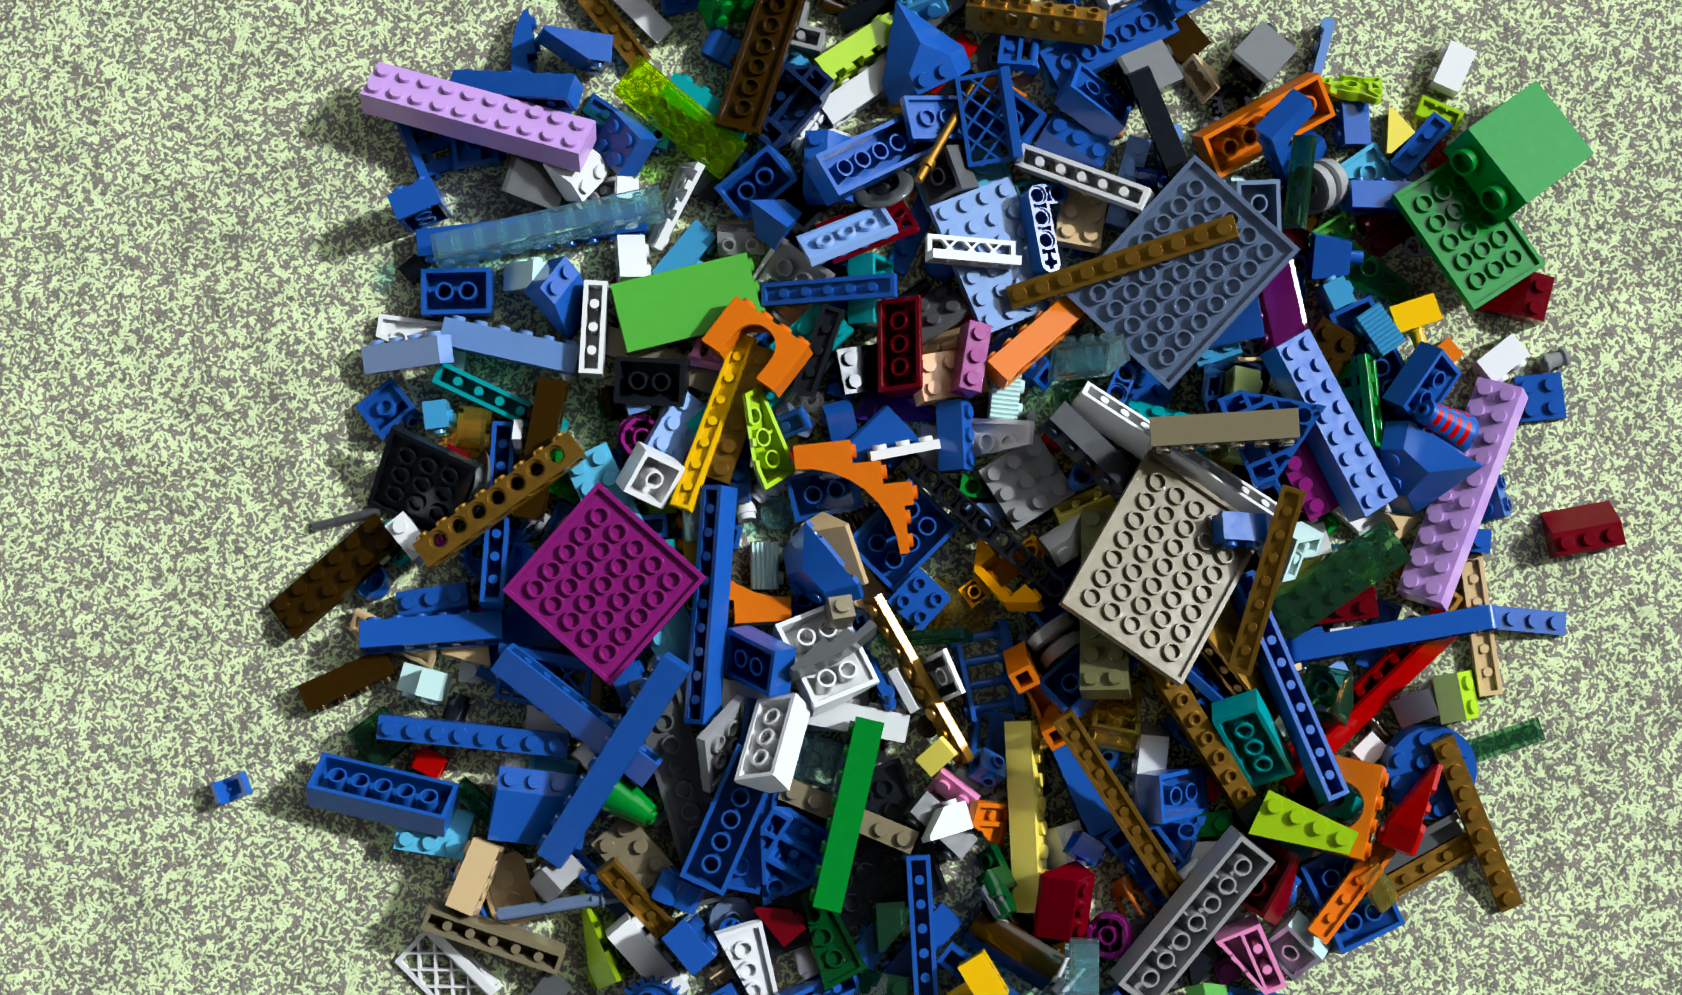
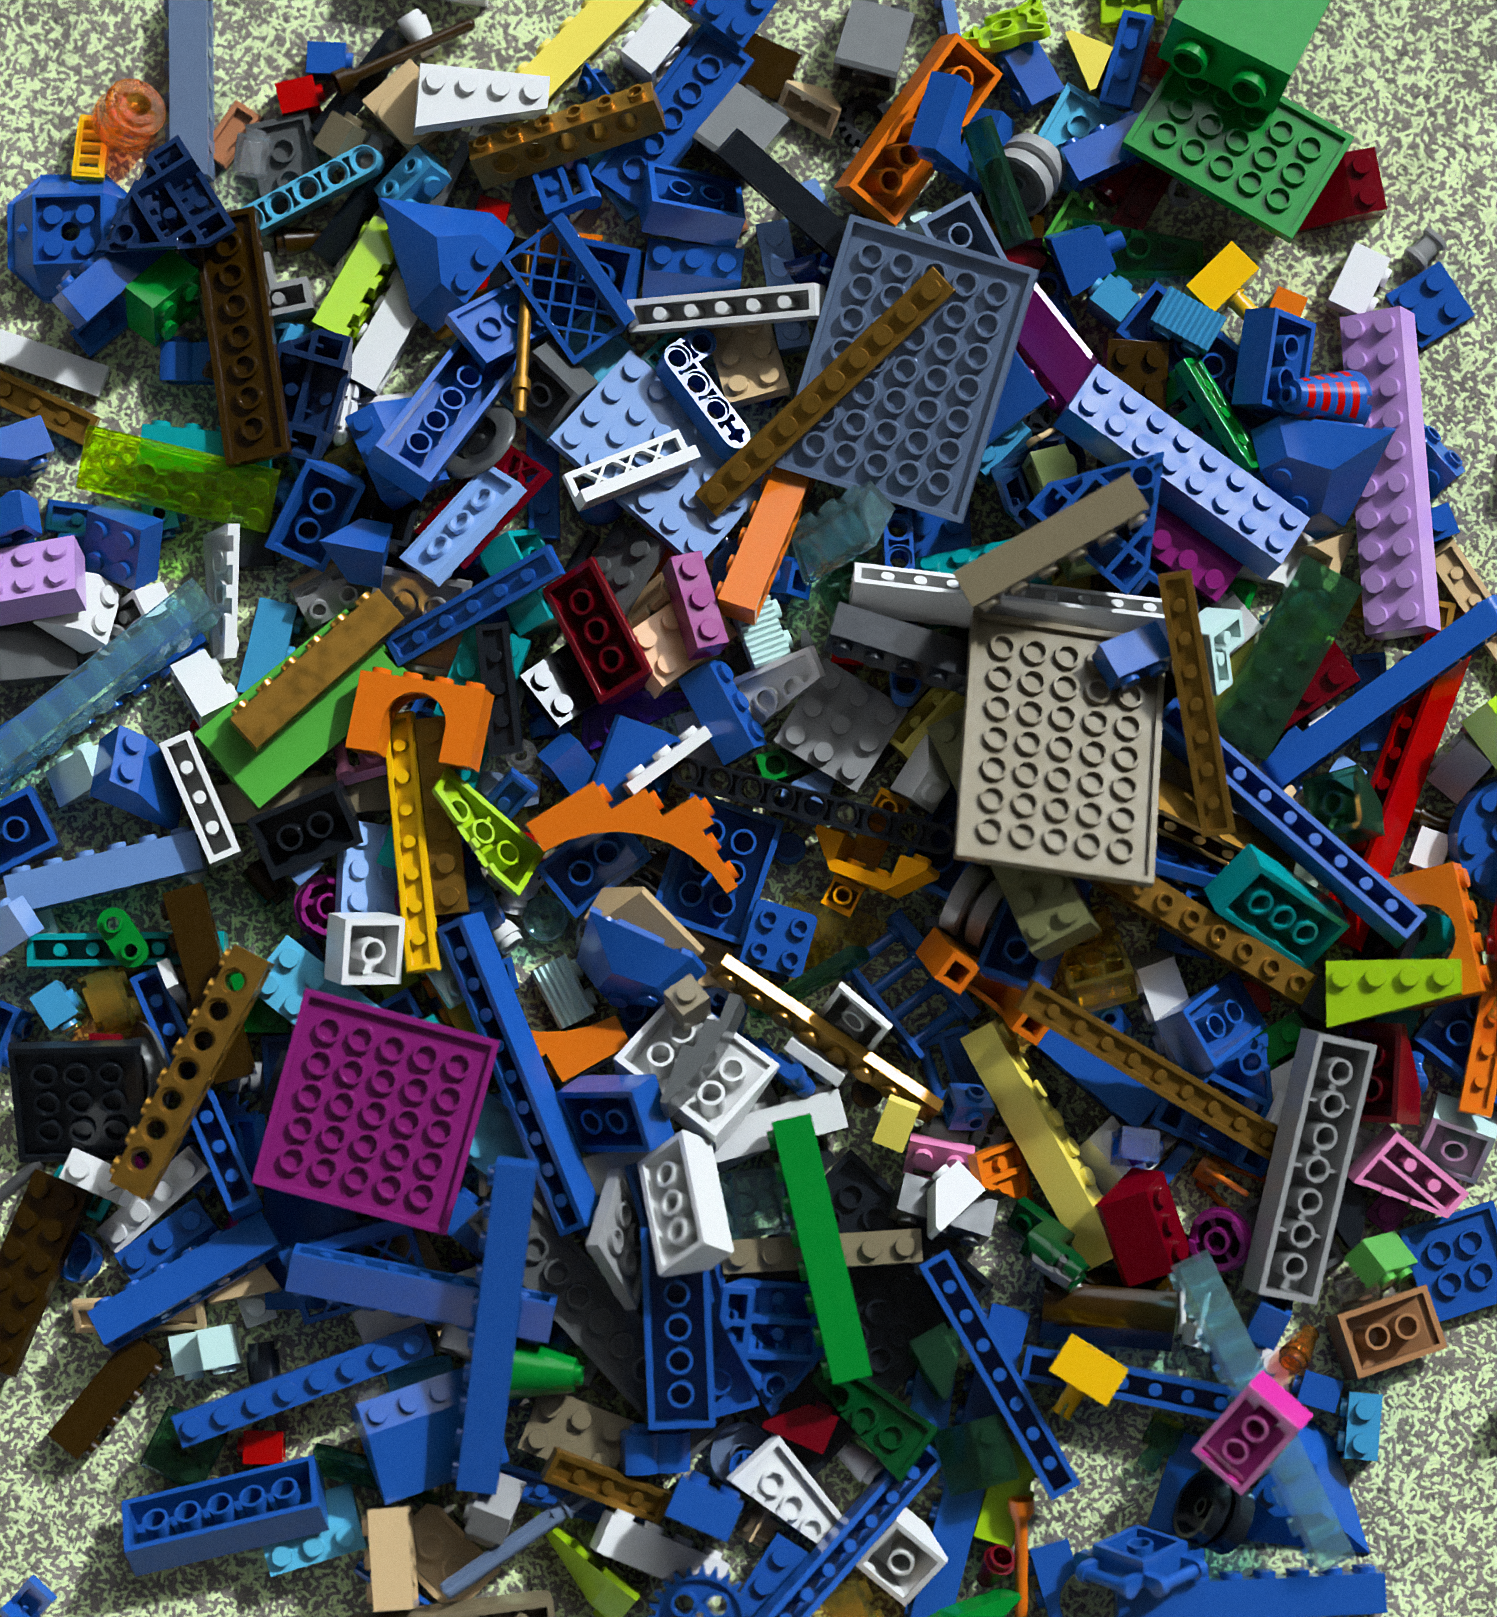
camera: 25 degrees left, 0 degrees up
(458, 565) = (131, 1222): none -> white plate
(501, 392) = (122, 937): none -> green plate
(708, 281) = (315, 670): none -> pearl gold brick
(794, 156) = (346, 455): none -> tile
(955, 545) = (790, 848): none -> blue tile
(1106, 868) = (1176, 1159): none -> blue beam

